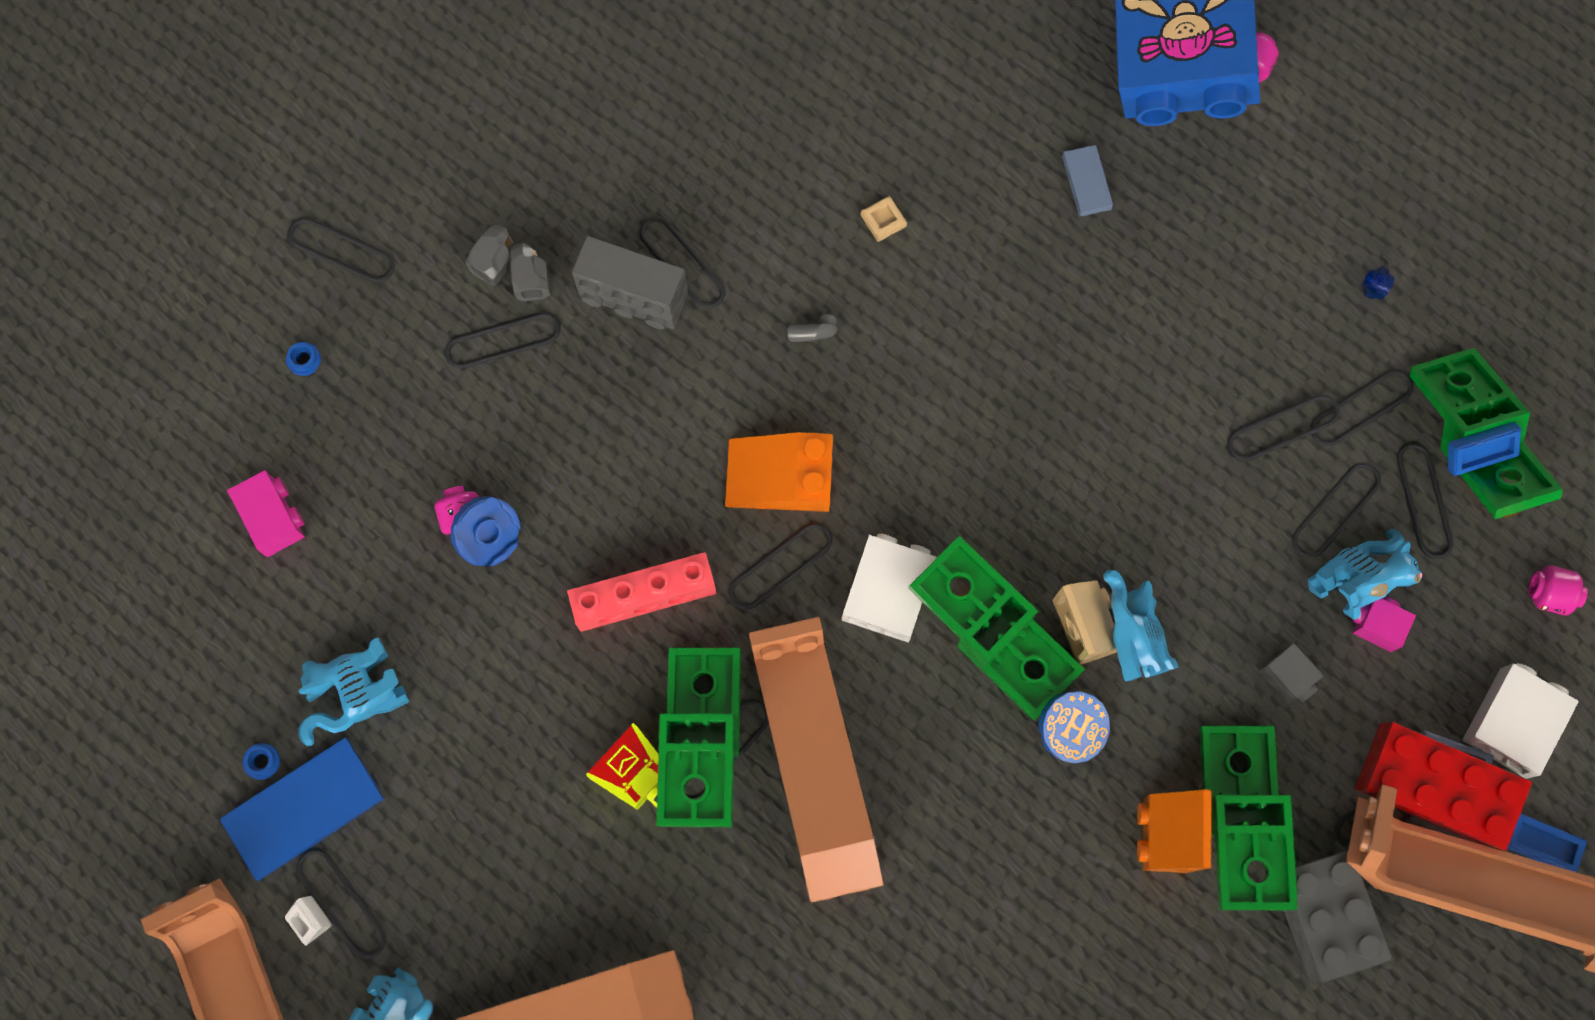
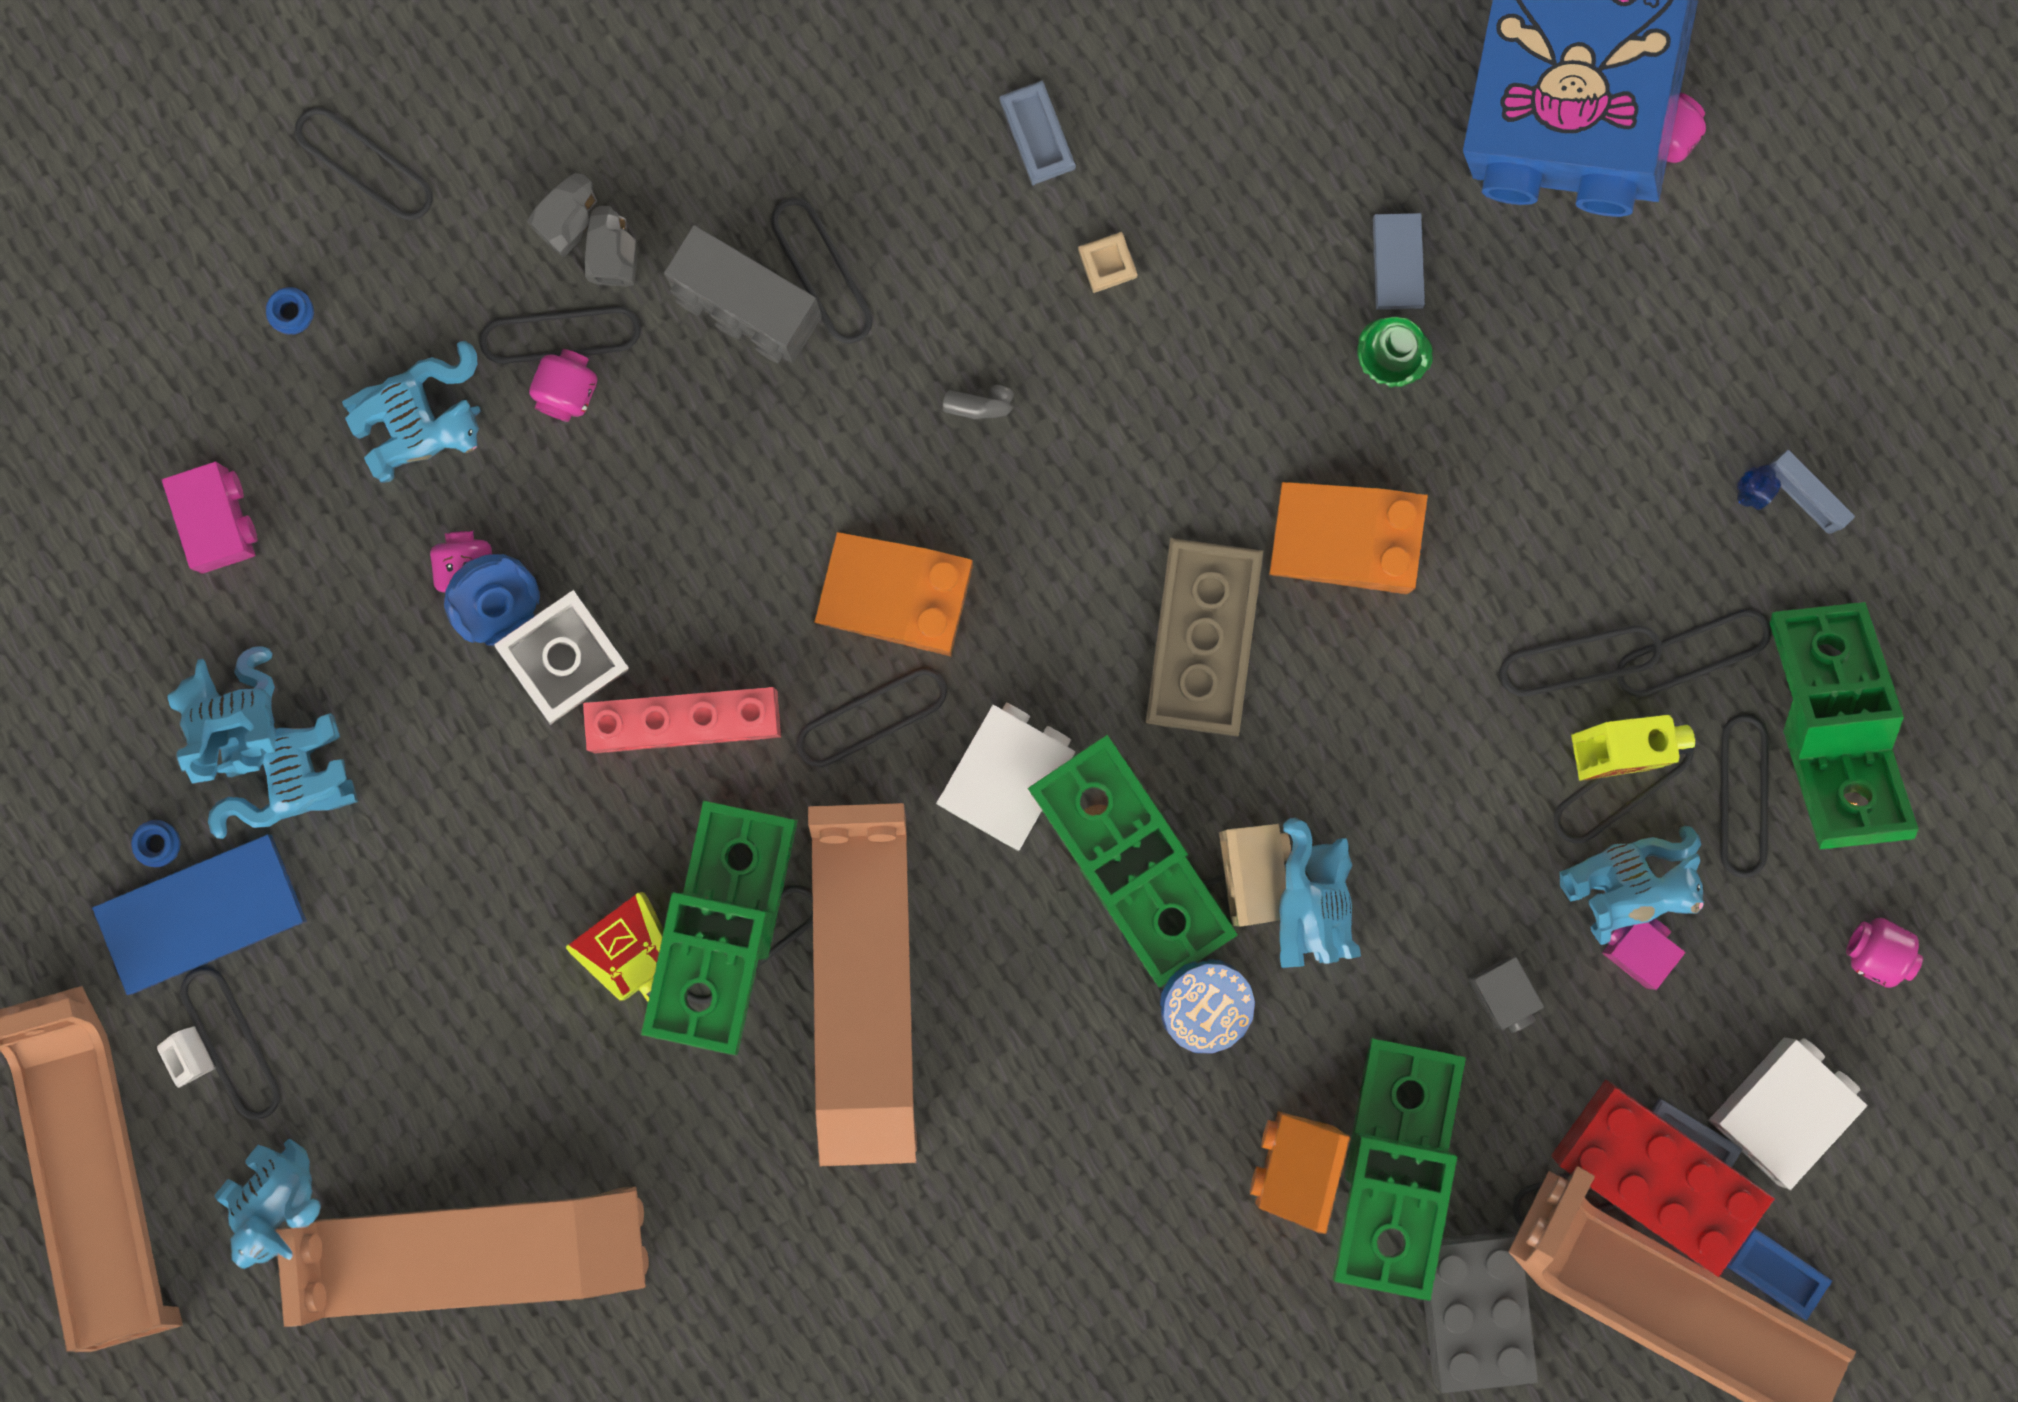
camera: 10 degrees right, 10 degrees up
(303, 654) = (226, 720): none -> dark azure animal
(398, 409) = (408, 417): none -> dark azure animal
(511, 372) = (563, 385): none -> dark pink head
(544, 562) = (561, 657): none -> white brick
(815, 142) = (1037, 132): none -> sand blue tile
(1010, 463) = (1204, 637): none -> dark tan tile
(1099, 370) = (1349, 536): none -> orange slope
(1100, 238) = (1394, 351): none -> green hair
(1345, 473) = (1630, 746): none -> neon yellow torso
(1417, 280) = (1810, 493): none -> sand blue tile
(1484, 448) = (1831, 751): blue tile -> none

